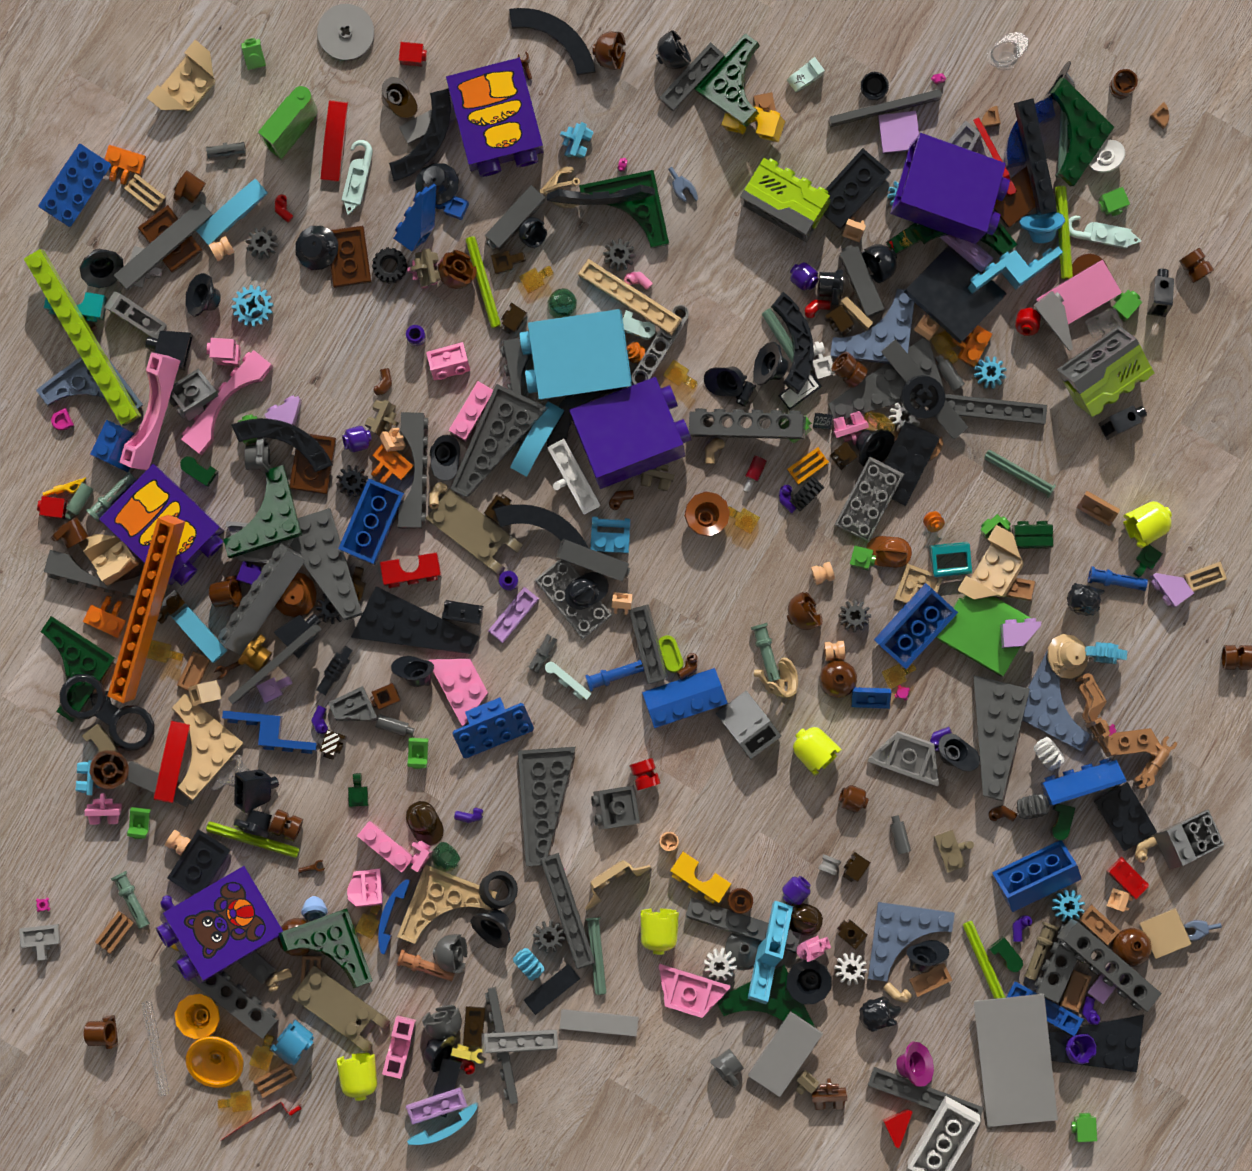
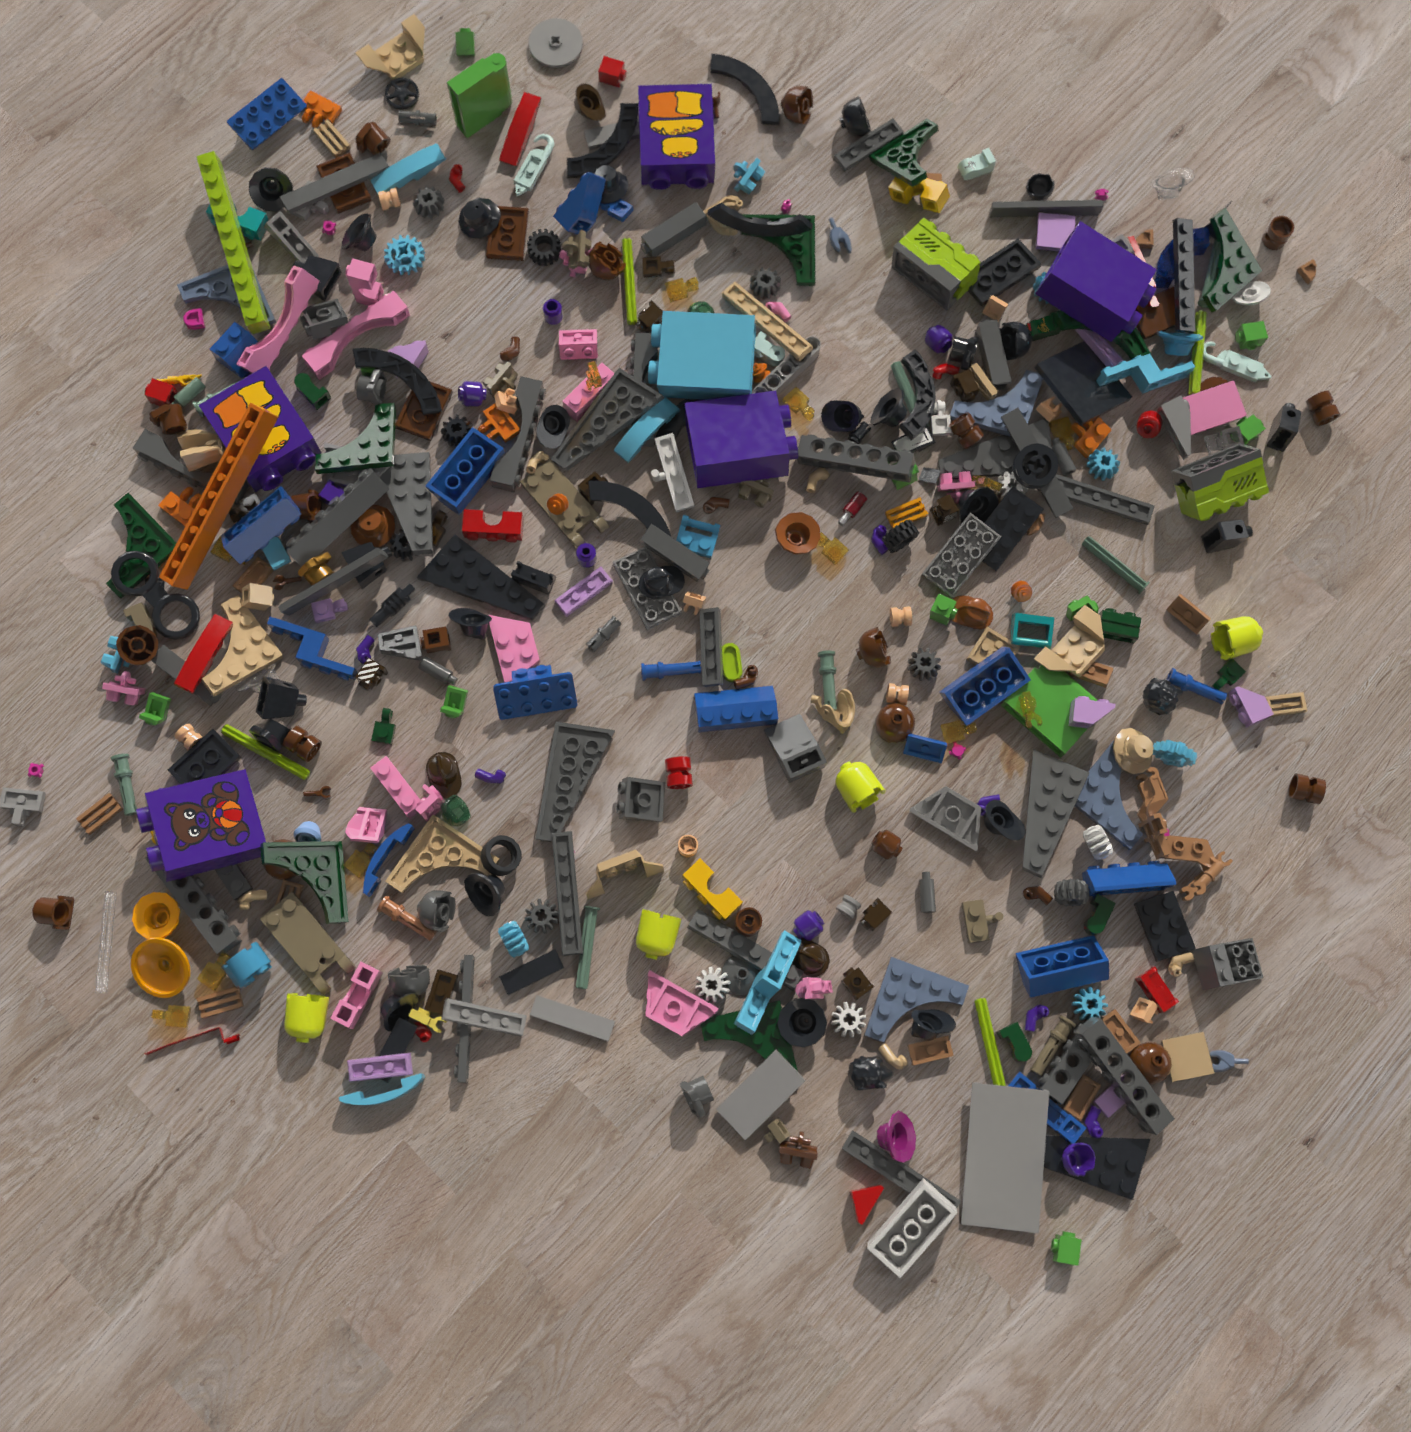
camera: 10 degrees right, 10 degrees down
(168, 291) = (329, 227): none -> dark pink piece
(190, 624) = (260, 525): none -> blue slope
(202, 125) = (402, 93): none -> black wheel
(469, 536) = (557, 504): none -> orange wheel
(475, 405) = (593, 376): none -> clear yellow plate
(532, 232) = (687, 245): black hair -> none
(566, 680) = (621, 663): light aqua plate -> none
(960, 639) = (1028, 707): none -> clear yellow plate

